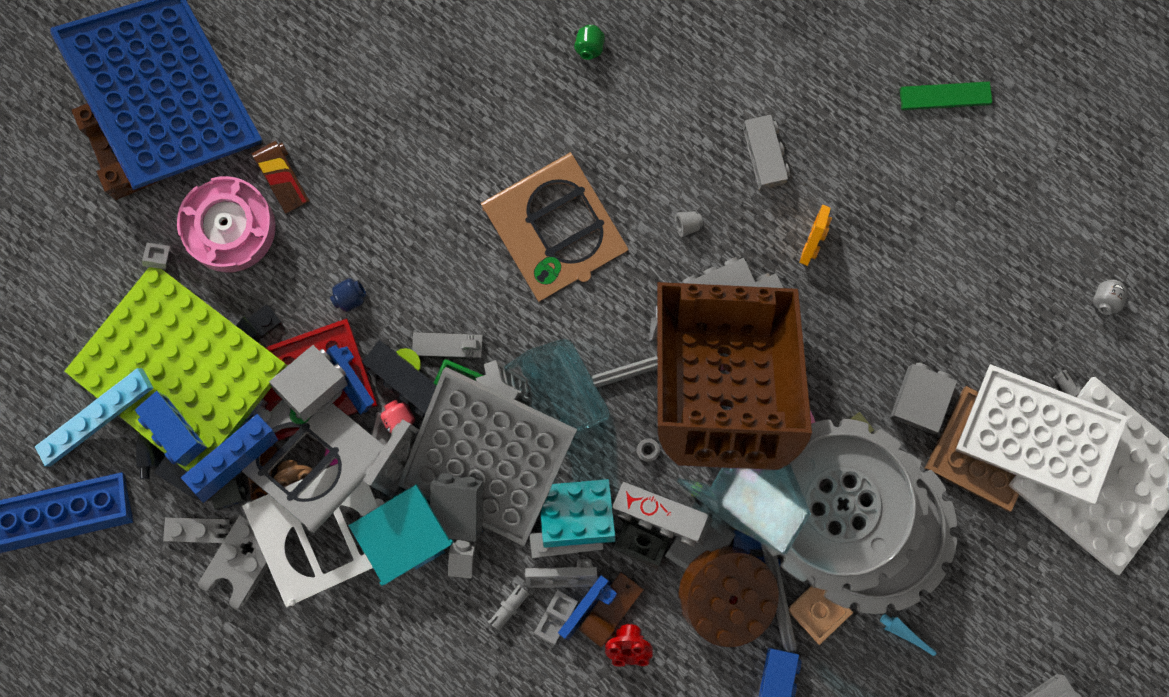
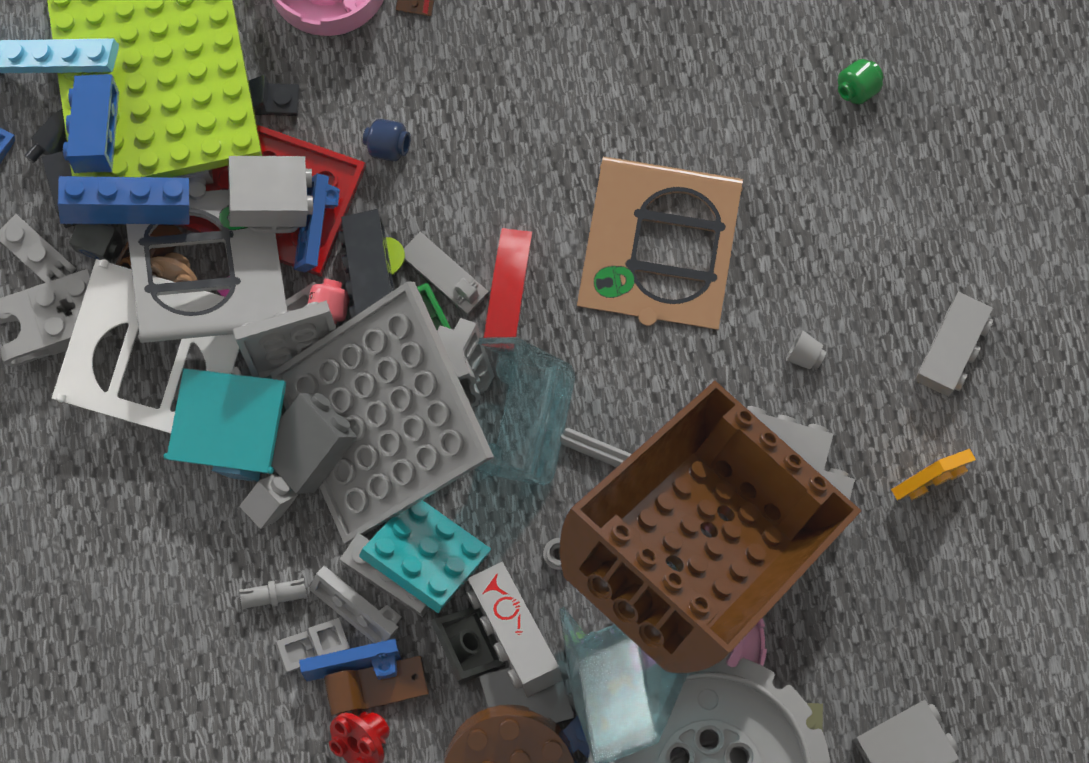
camera: 45 degrees right, 5 degrees down
(491, 322) = (508, 283): none -> red slope

